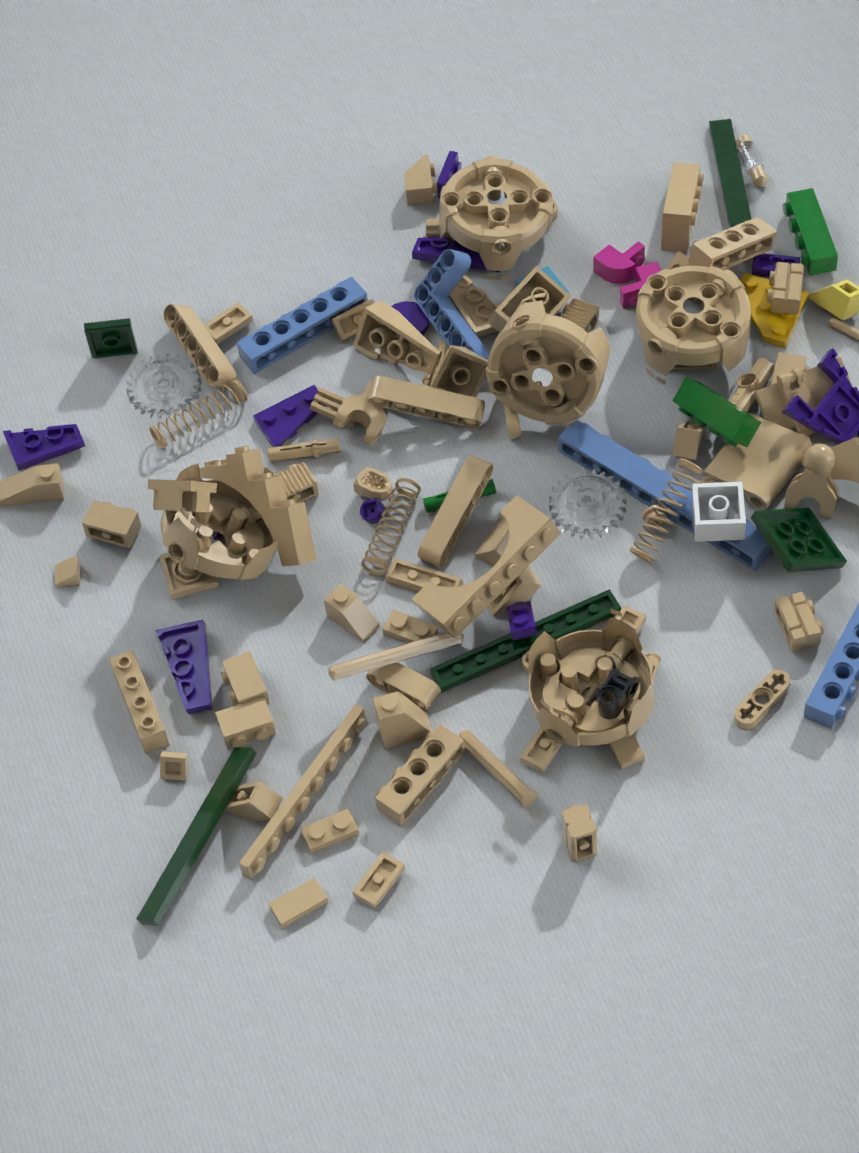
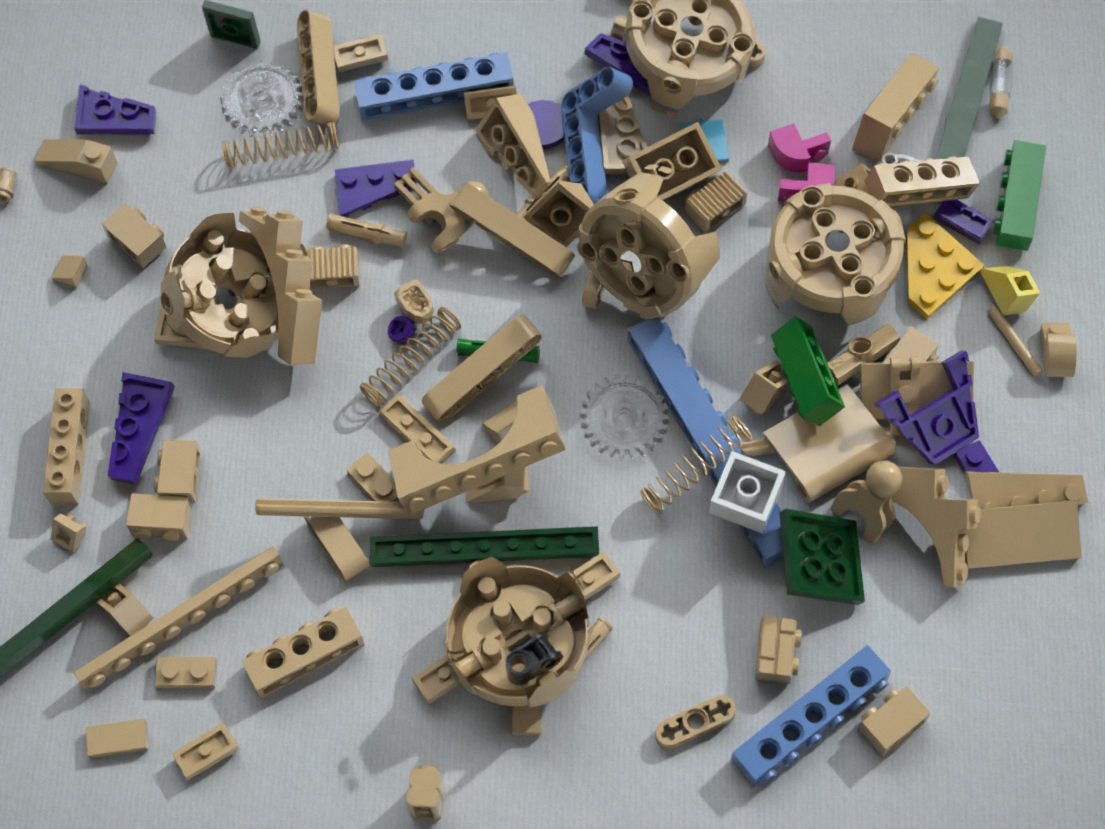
camera: 20 degrees right, 10 degrees up
(175, 494) = (204, 244): tan panel -> none
(350, 612) = (322, 438): tan slope -> none
(400, 720) = (309, 585): tan slope -> none
(498, 769) = (384, 678): tan axle -> none
(521, 620) = (489, 523): dark purple plate -> none
(649, 511) = (678, 456): tan bush -> none
(786, 289) = (958, 254): tan brick -> none

